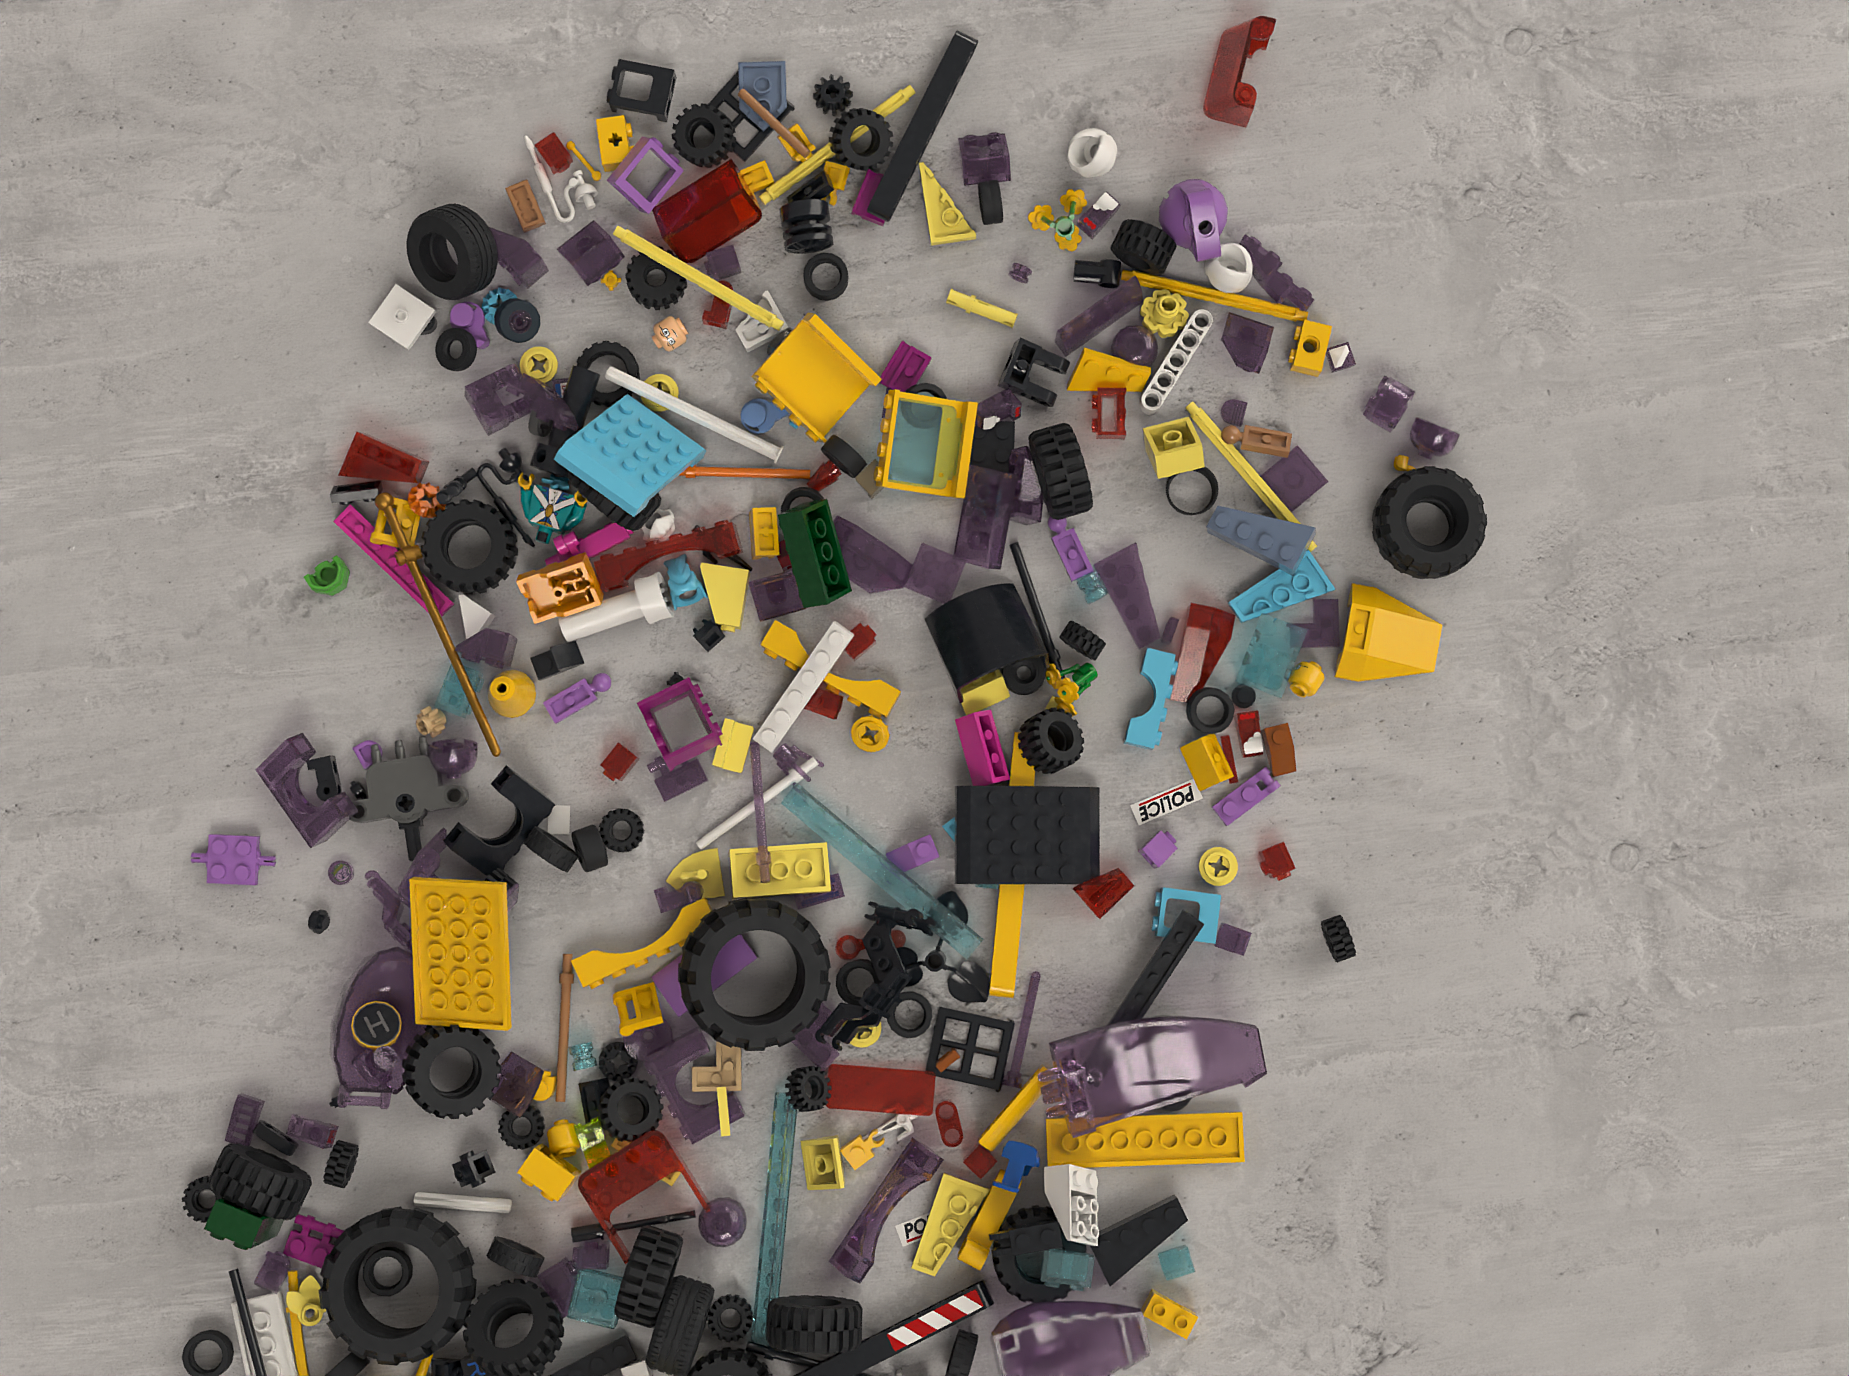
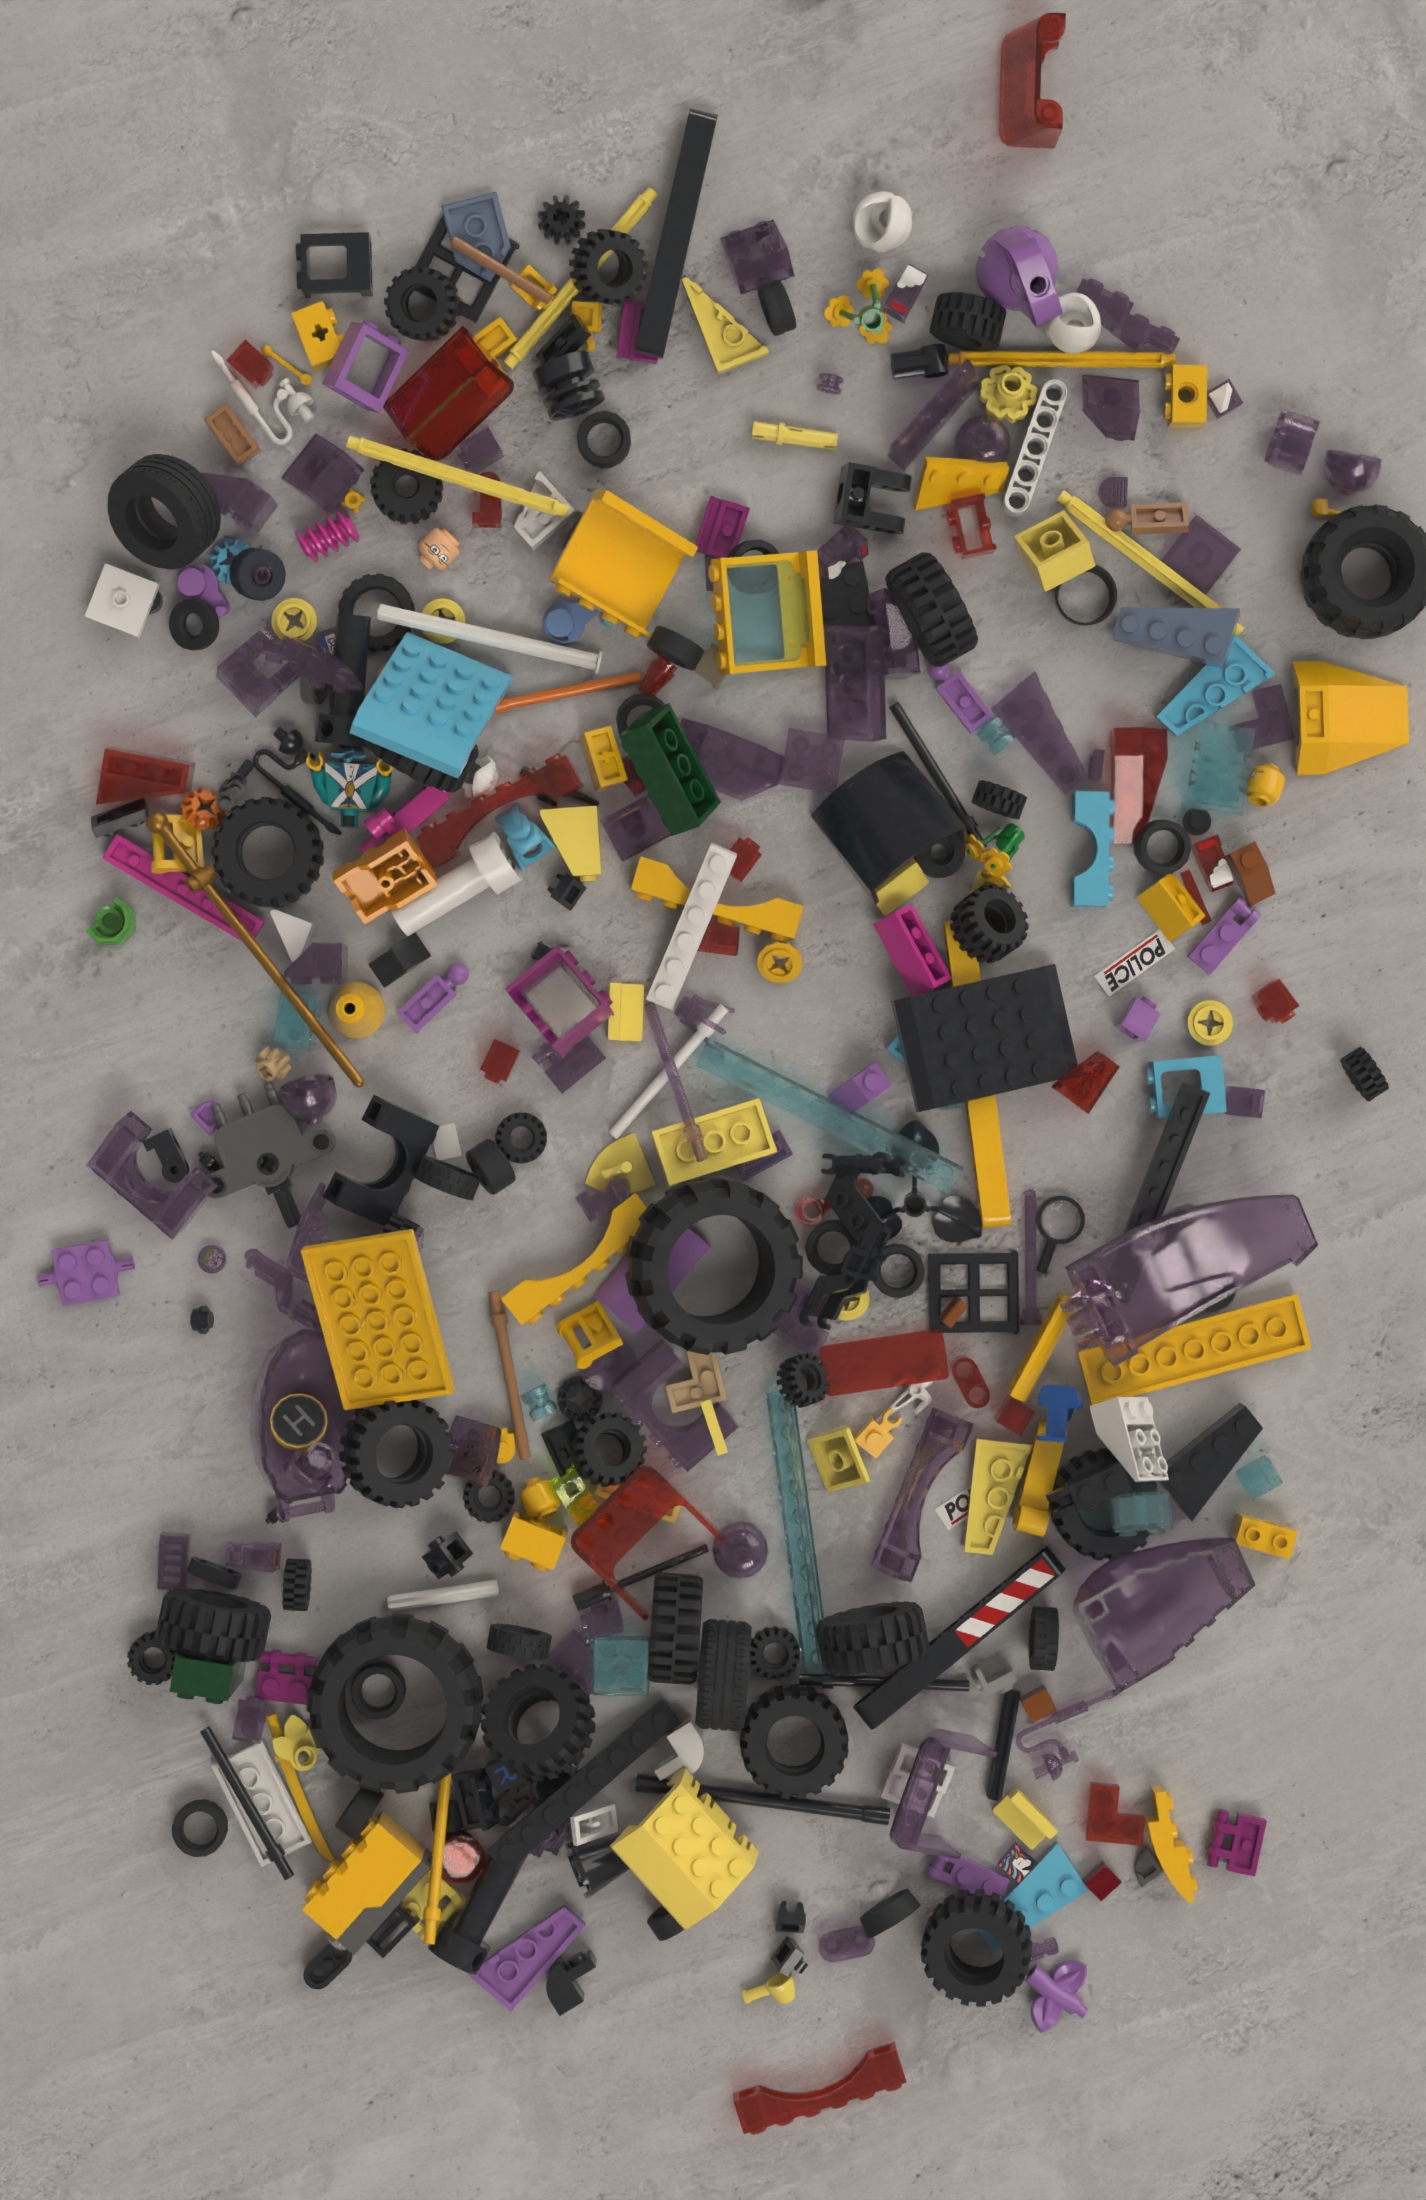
camera: 10 degrees left, 5 degrees up
(582, 303) = (327, 536): none -> dark pink piece
(1055, 1005) = (1059, 1222): none -> piece

